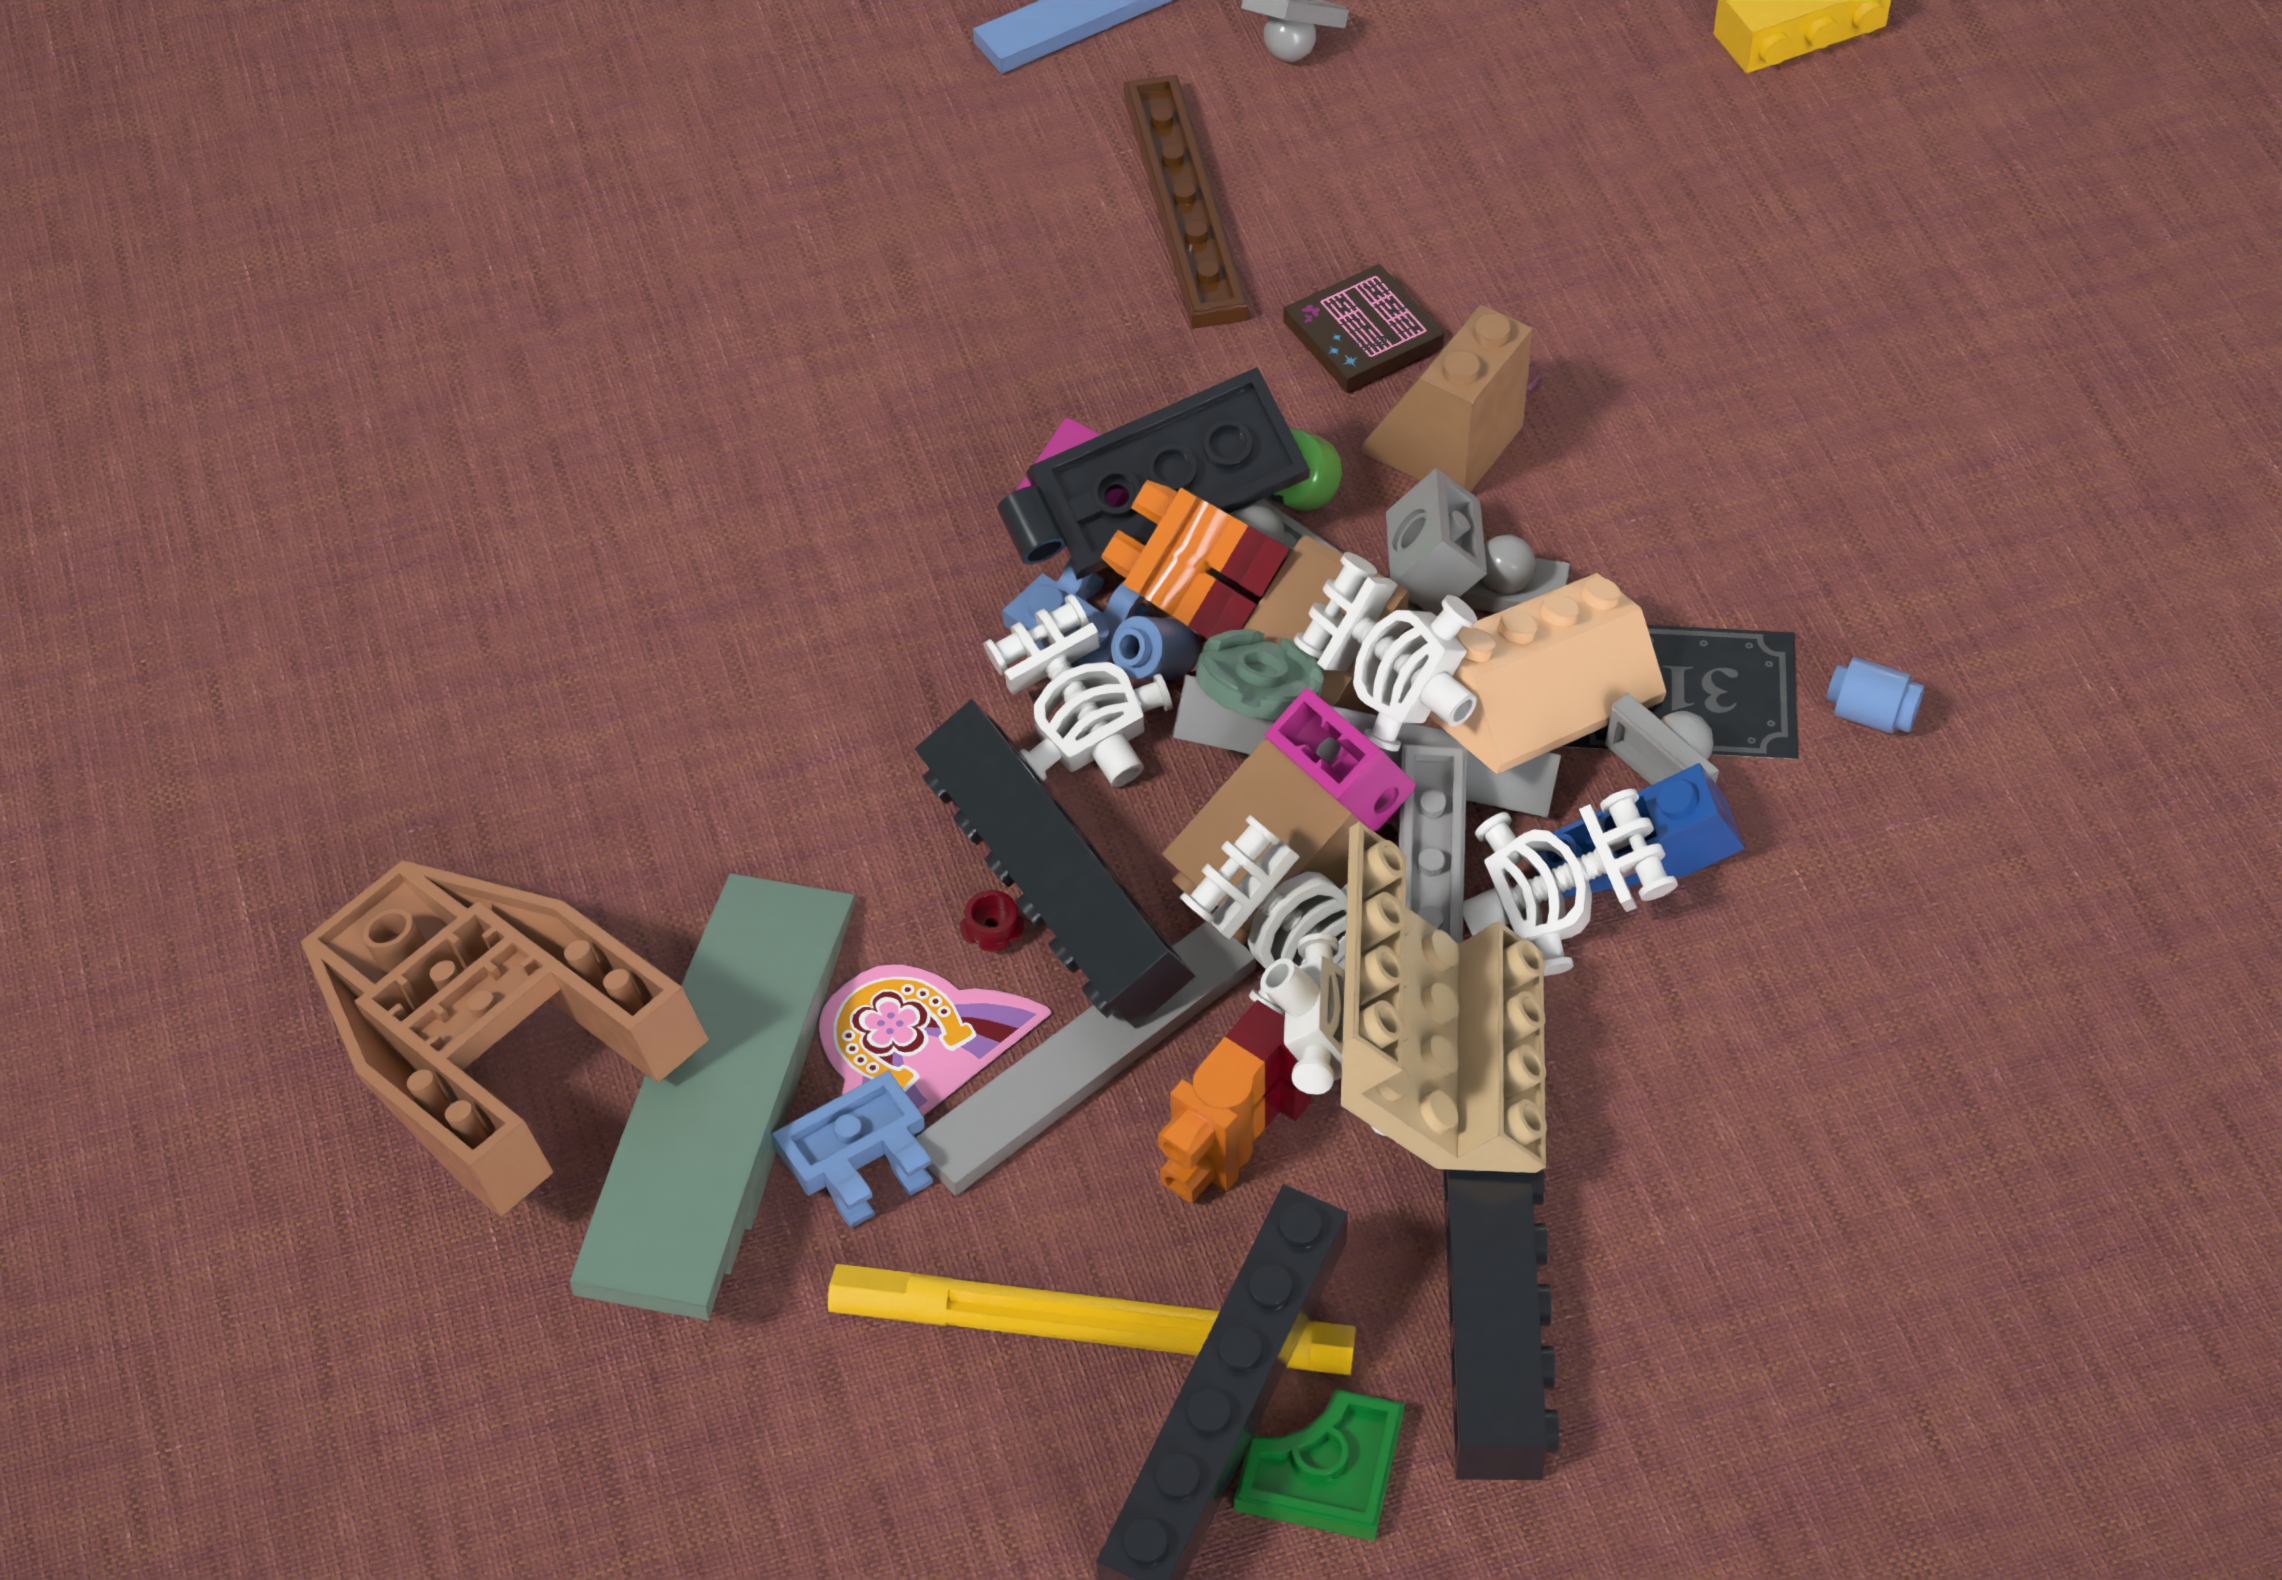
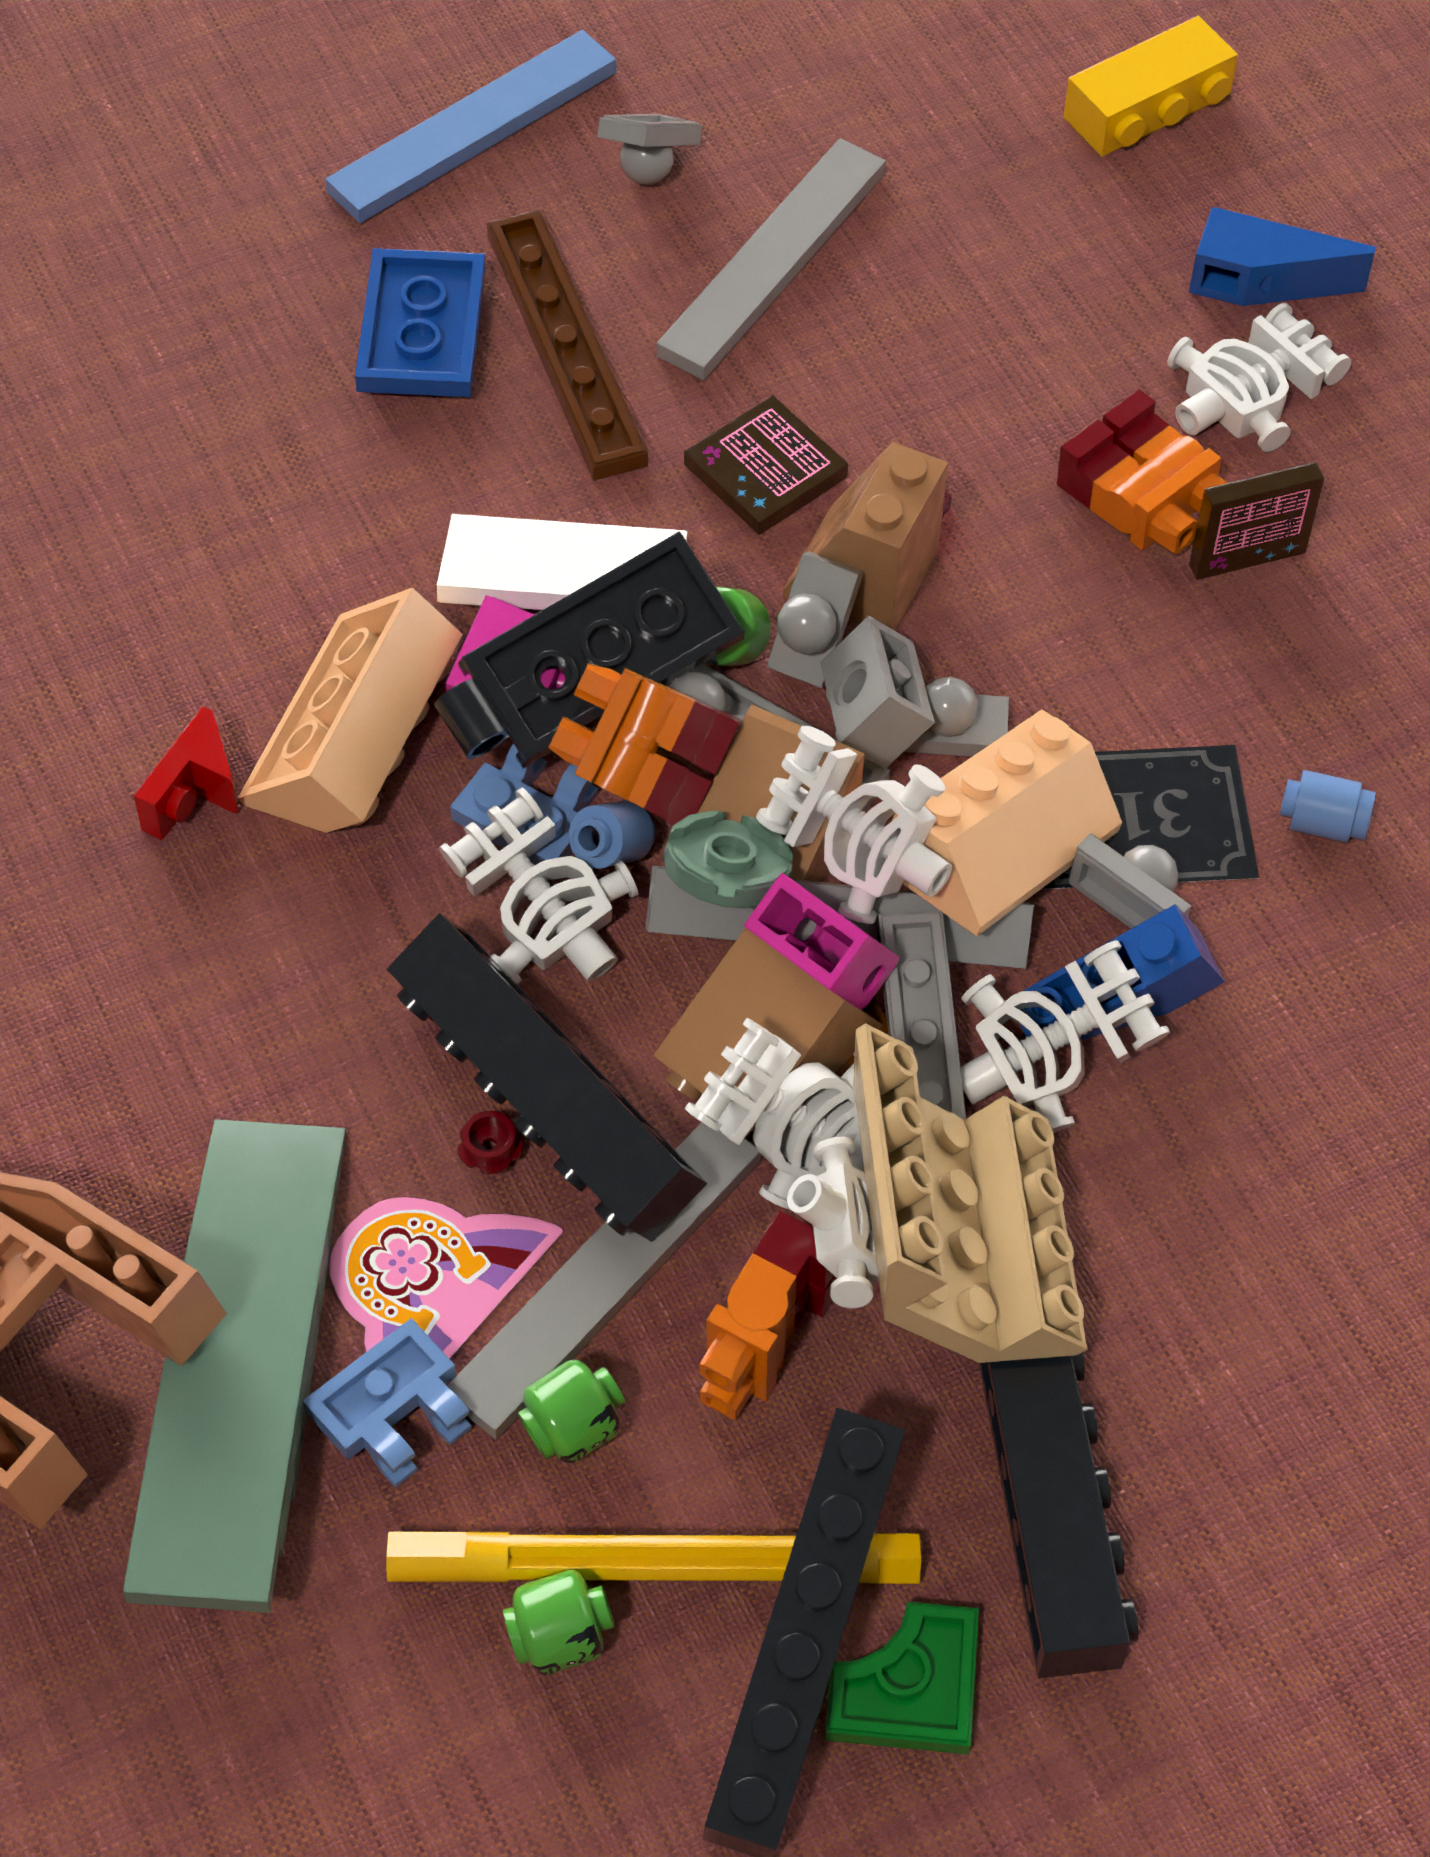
camera: 10 degrees left, 5 degrees up
(750, 553) = (189, 769): none -> red slope
(923, 517) = (353, 714): none -> light nougat slope
(986, 1364) = (558, 1622): none -> bright green head
(1031, 1173) = (571, 1411): none -> bright green head
(1044, 167) = (420, 323): none -> blue plate
(1107, 388) = (532, 560): none -> white tile
(1384, 467) = (814, 617): none -> light grey tile
(1398, 139) = (770, 259): none -> light grey tile
(1738, 370) = (1139, 474): none -> orange hips
(1842, 419) = (1255, 520): none -> dark brown tile
(1846, 288) = (1247, 382): none -> white piece
(1900, 183) = (1270, 262): none -> blue slope

